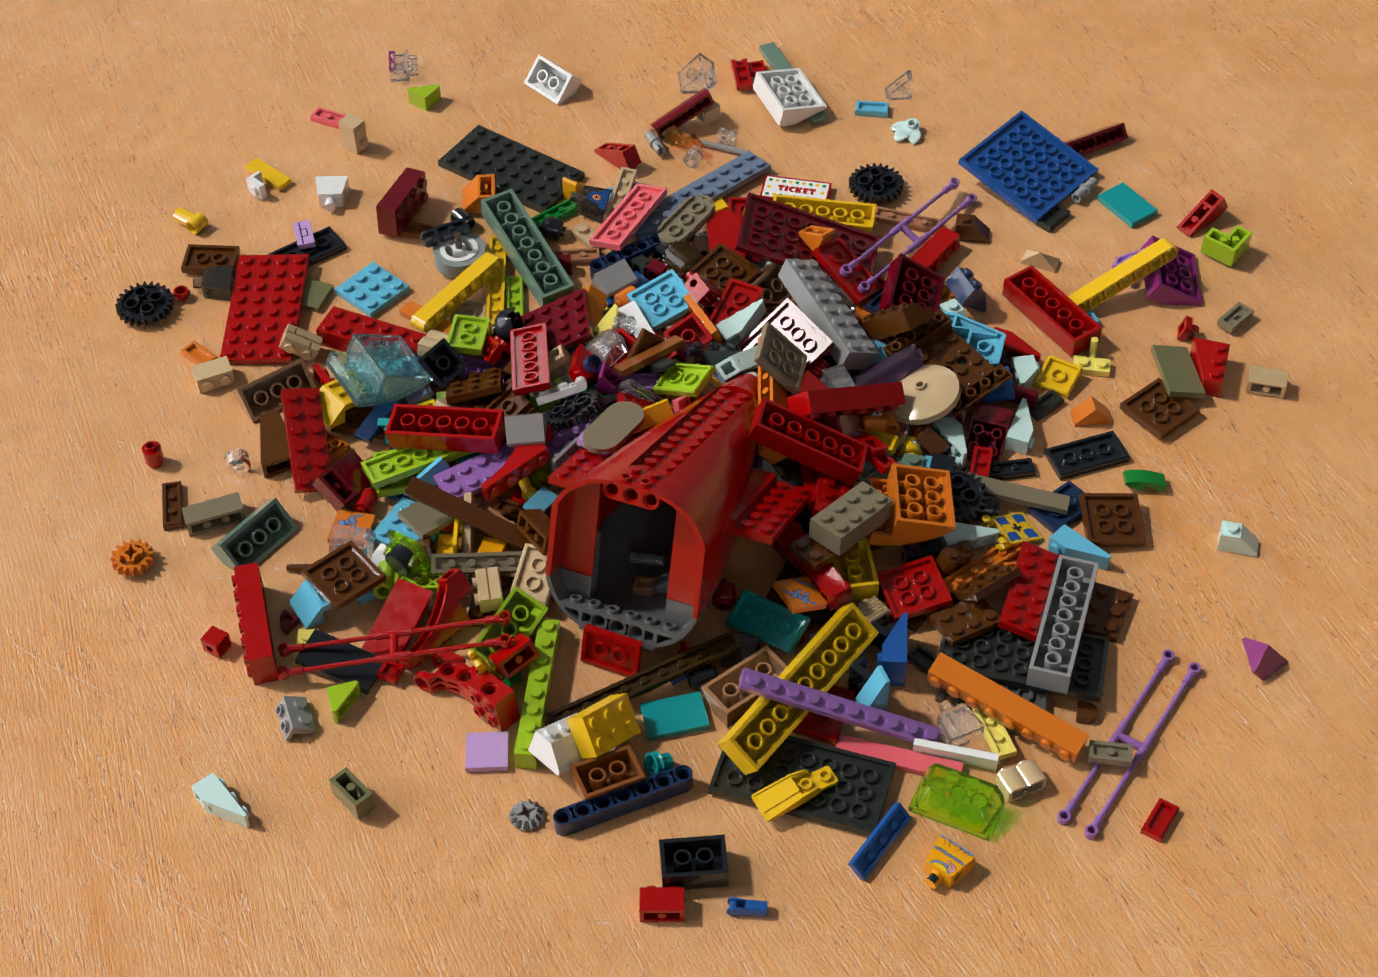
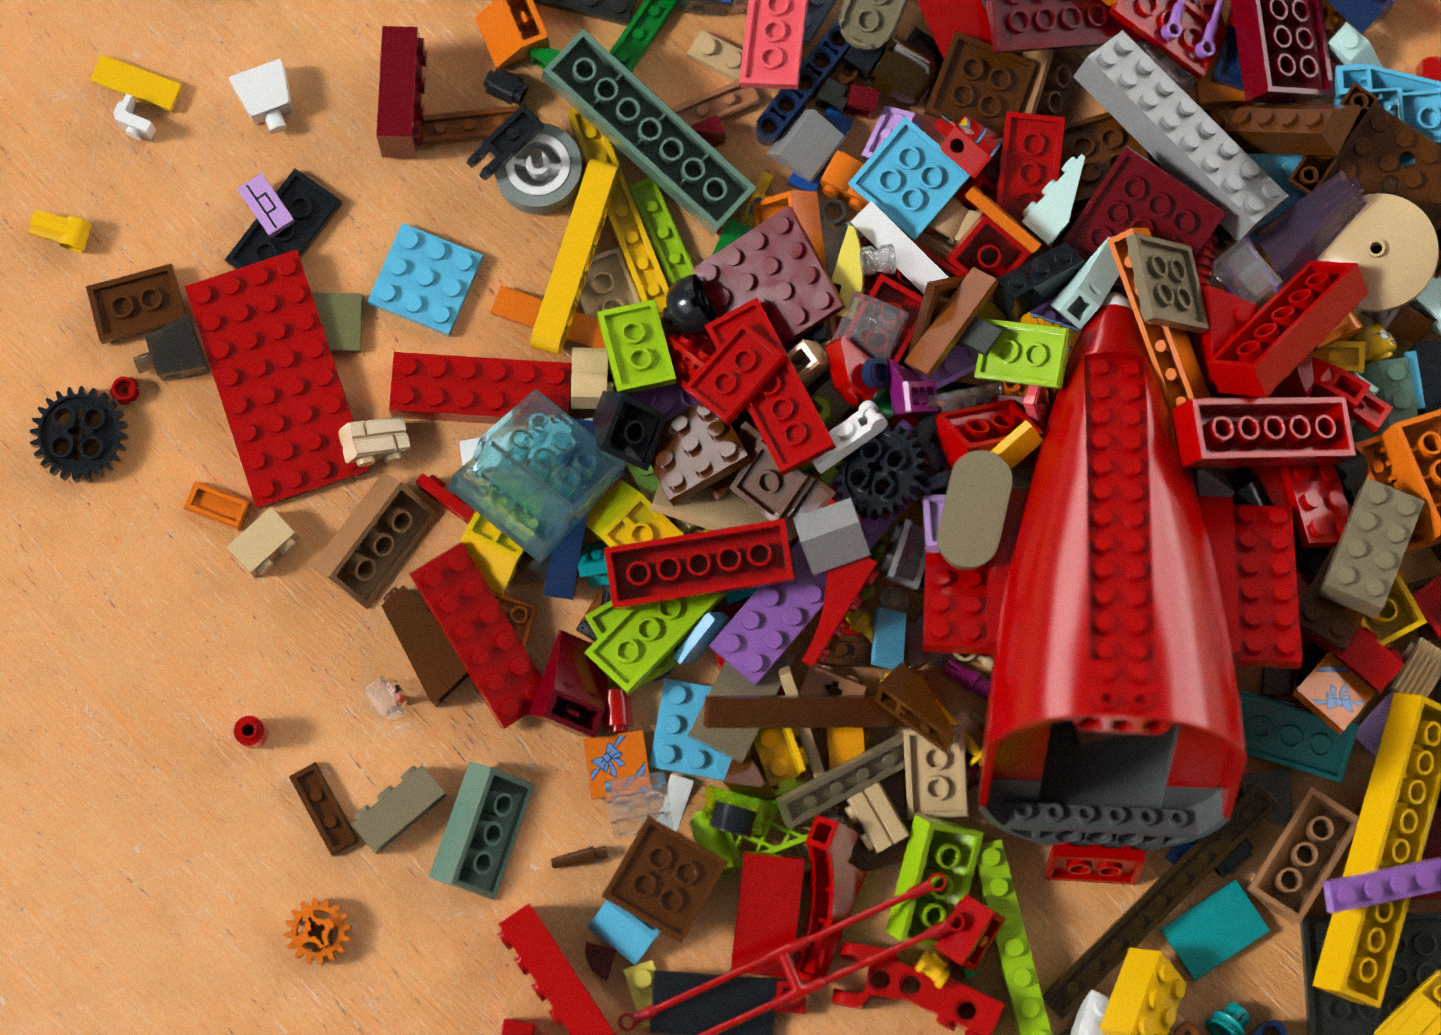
camera: 25 degrees left, 30 degrees up
(513, 347) = (735, 373): none -> red tile
(553, 228) = (660, 61): black head -> none

